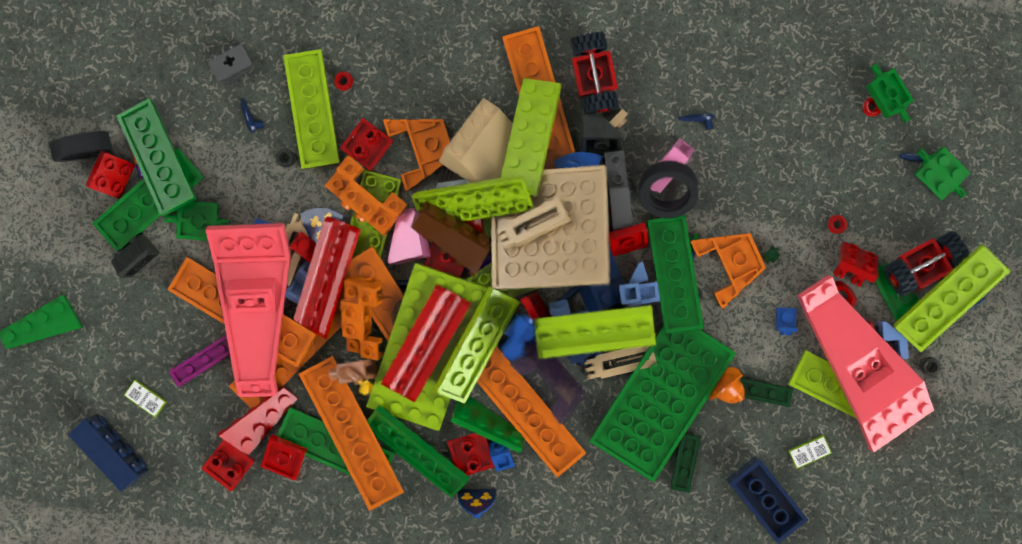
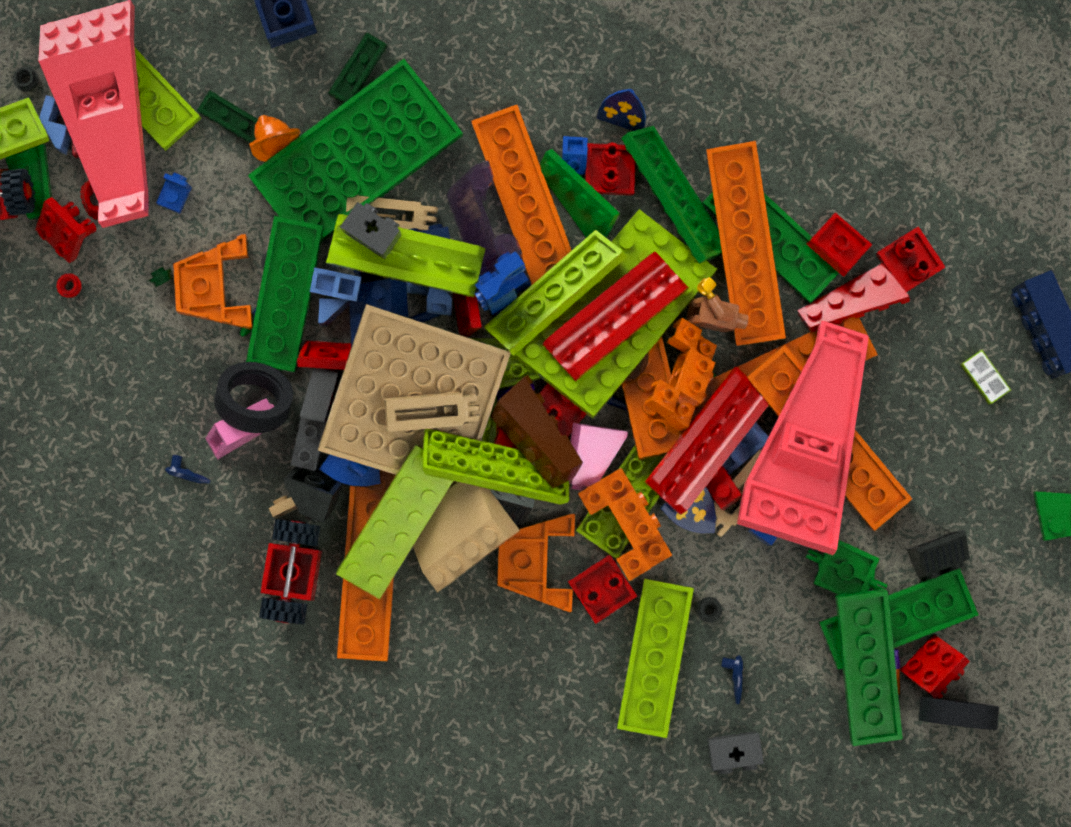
camera: 160 degrees left, 5 degrees down
(200, 361) = (900, 397): magenta tile -> none
(337, 81) = (611, 679): red plate -> none
(616, 333) = (378, 242): none -> dark grey brick
(809, 451) = (206, 29): tile -> none

